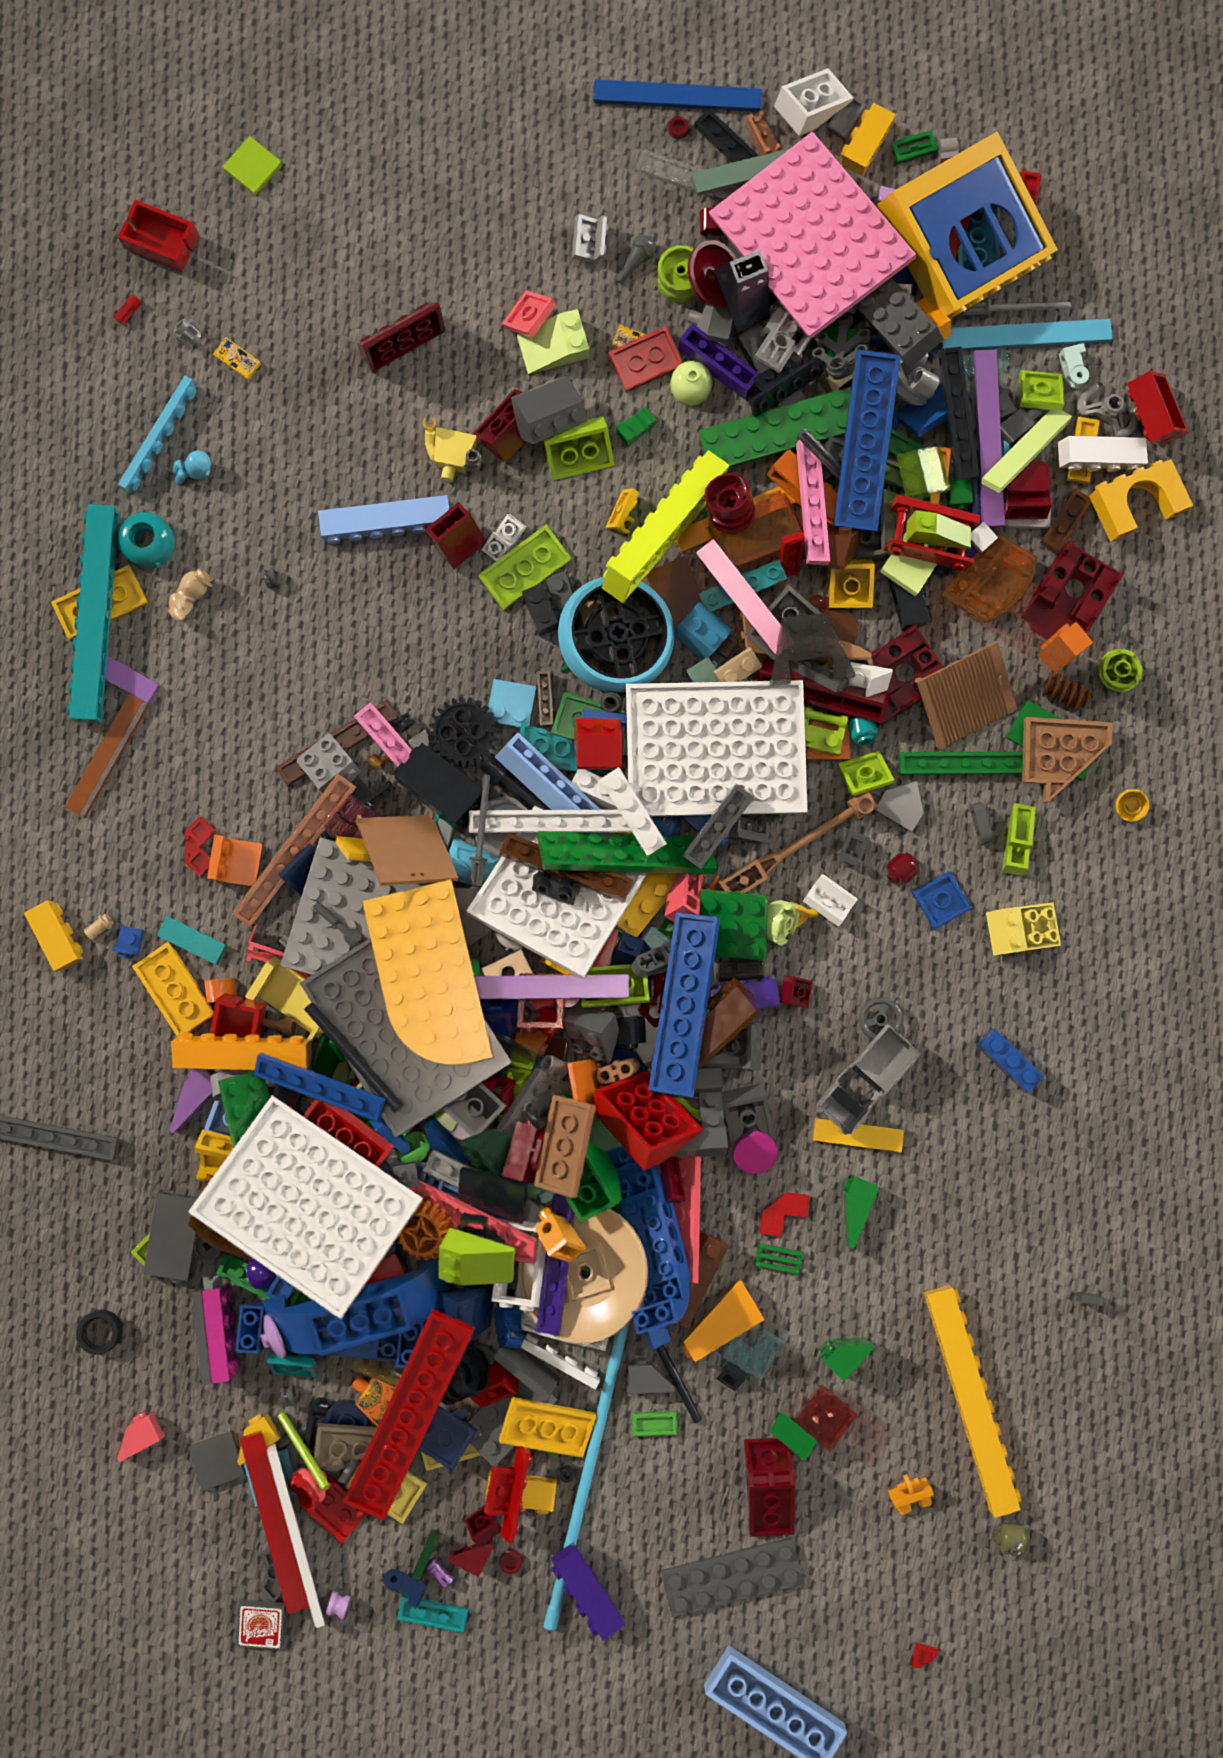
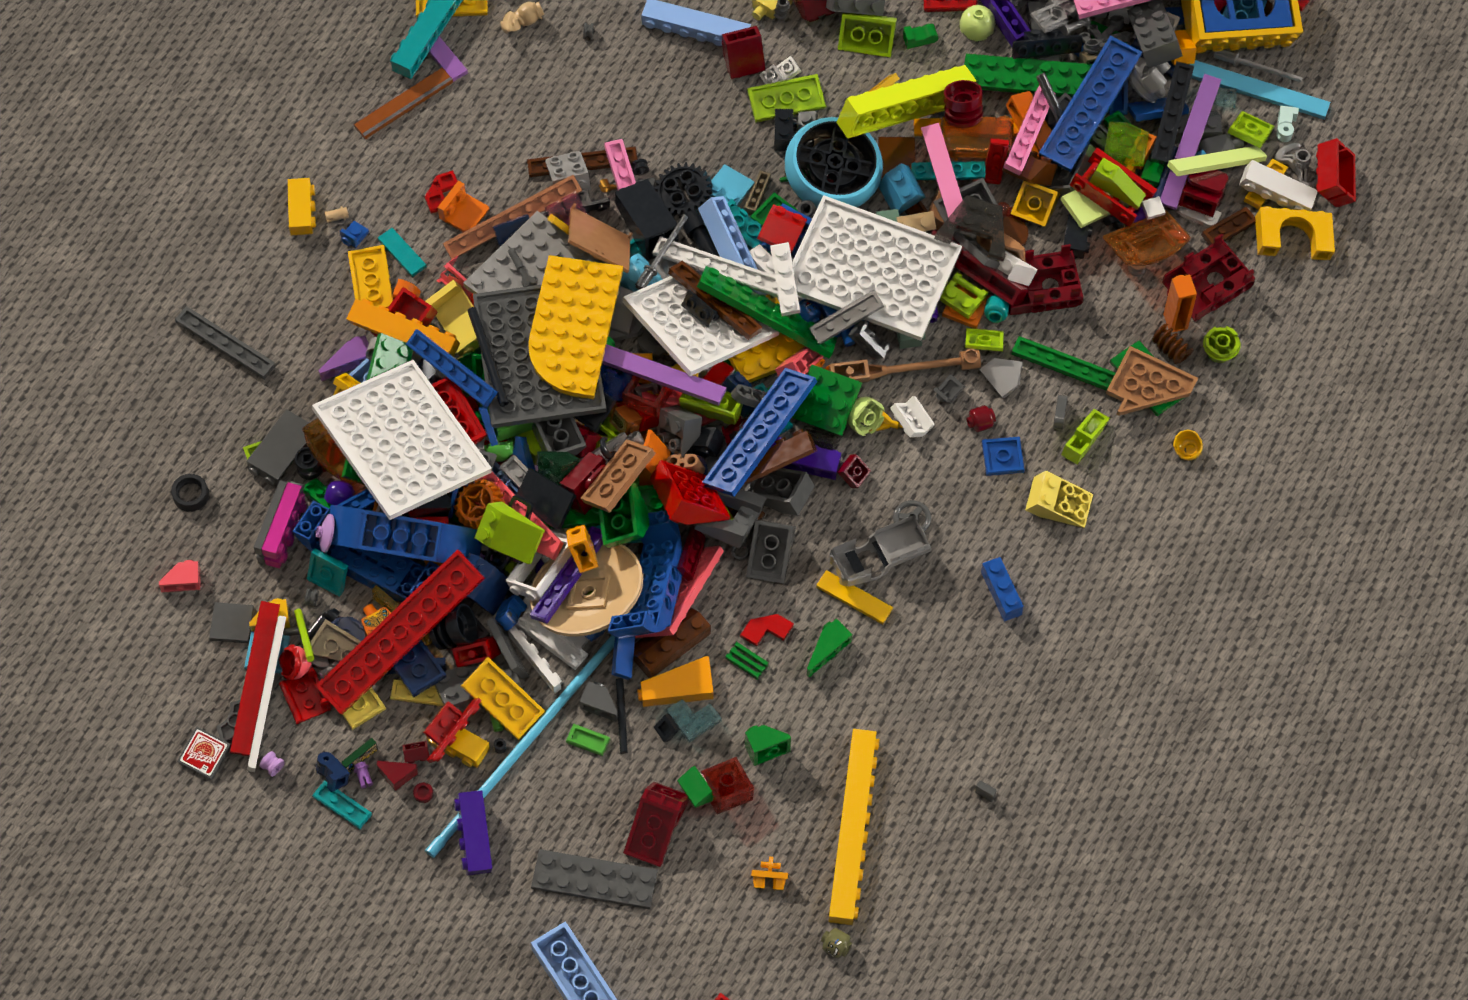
camera: 25 degrees right, 20 degrees down
(755, 1152) = (765, 572): dark pink tile -> none
(967, 695) = (1089, 313): medium nougat door -> none

